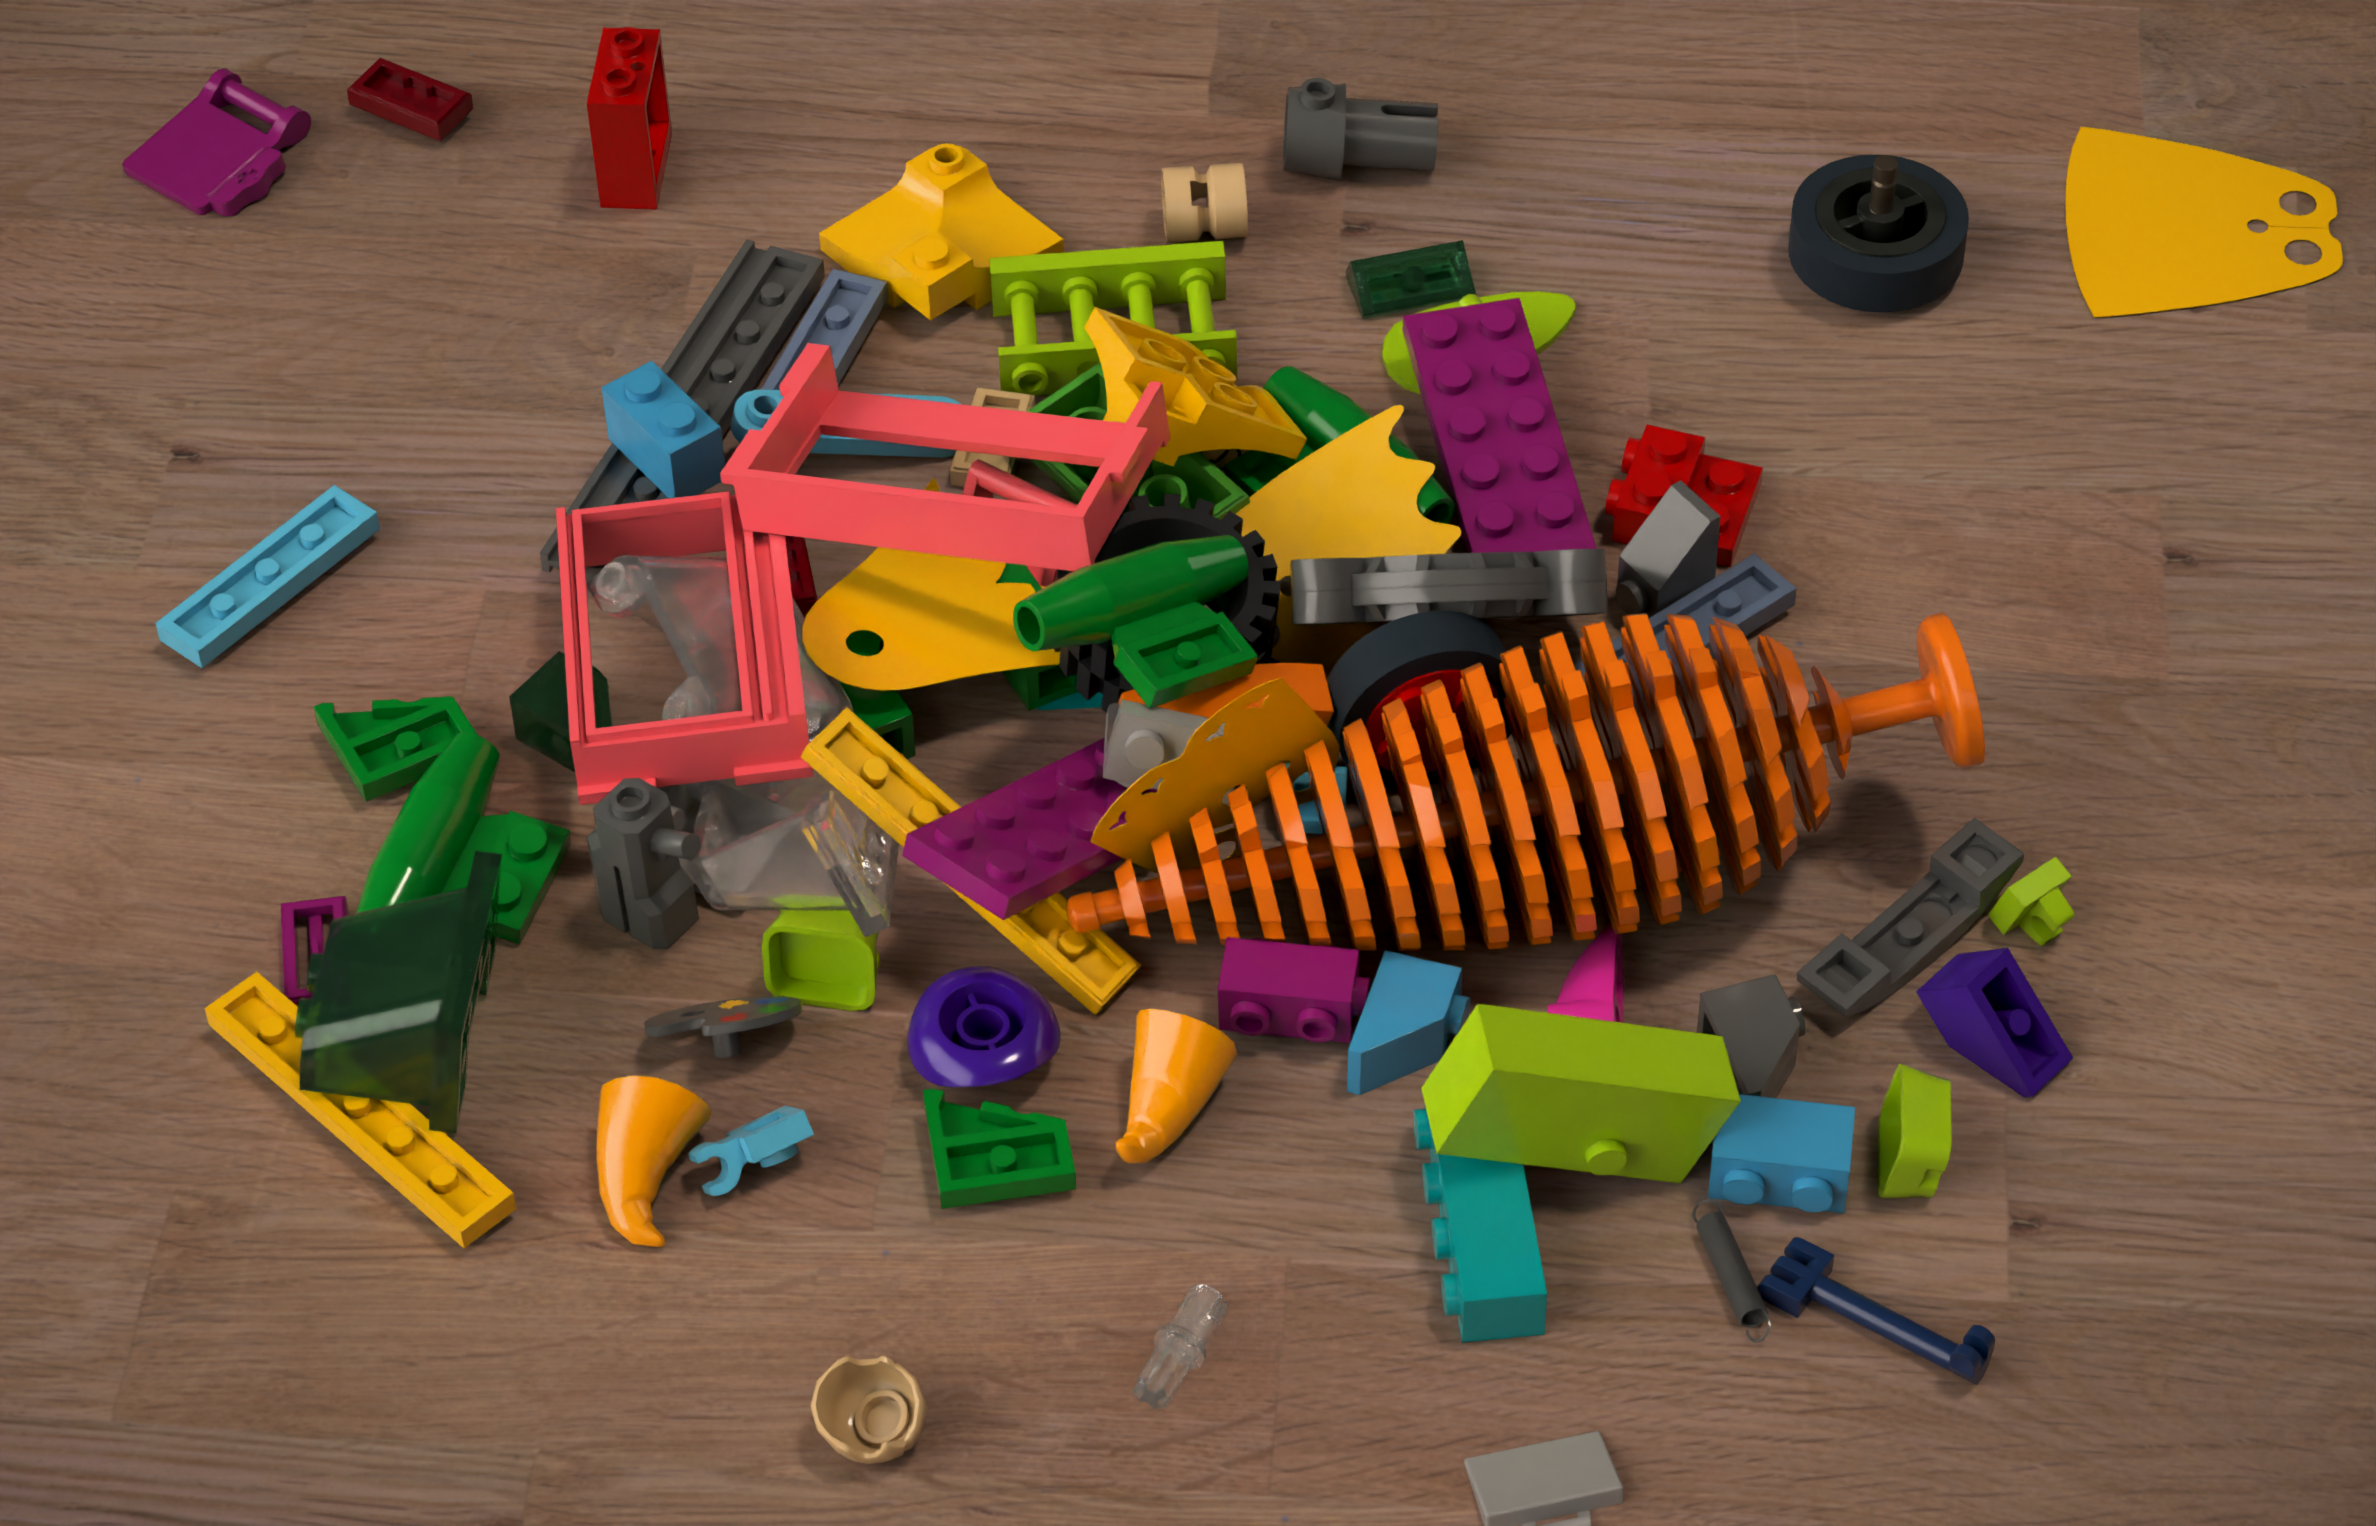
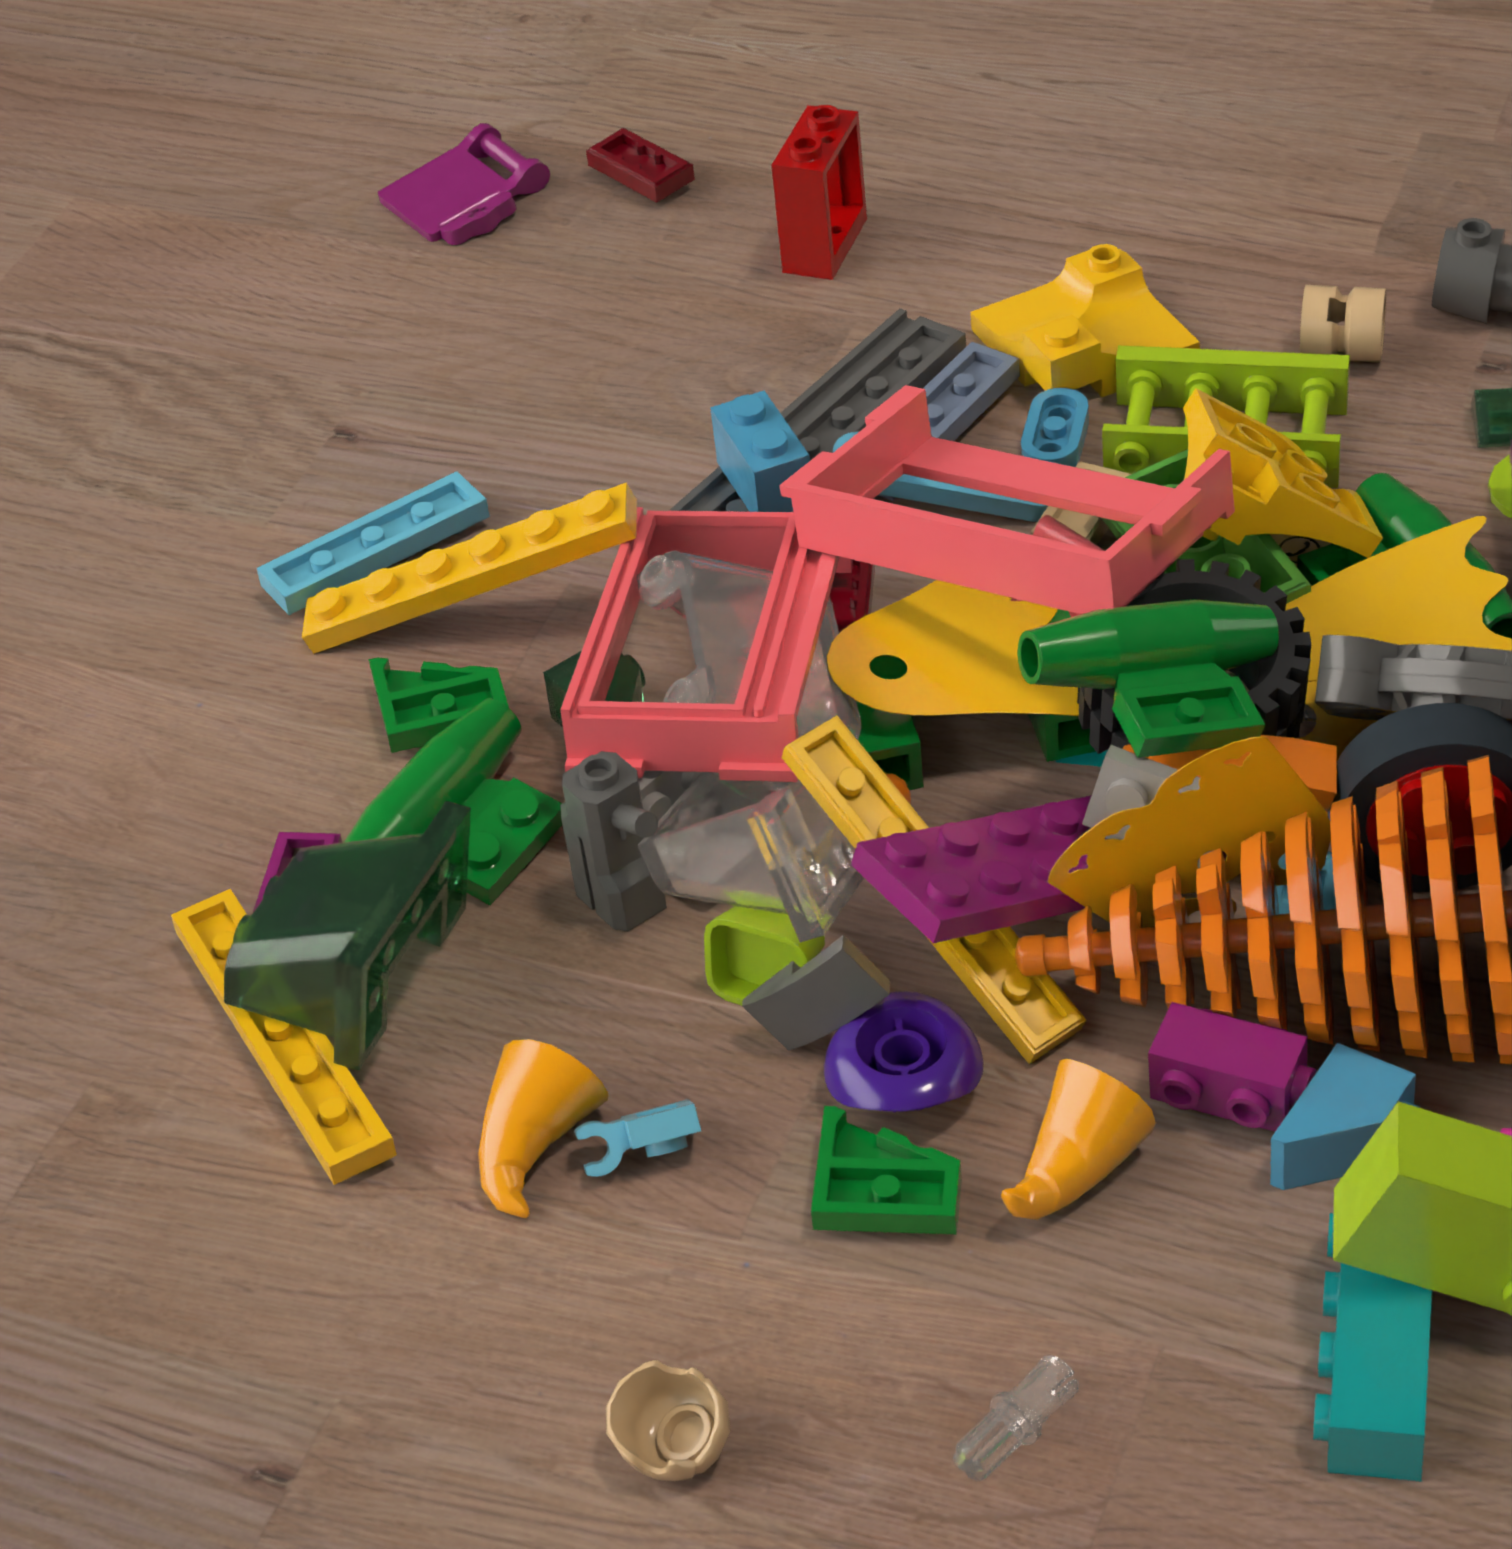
camera: 20 degrees right, 5 degrees down
(395, 596) = (470, 567): none -> yellow plate
(725, 1020) = (652, 1006): dark grey piece -> none
(892, 988) = (818, 997): none -> dark grey slope
(944, 355) = (1056, 427): none -> dark azure plate

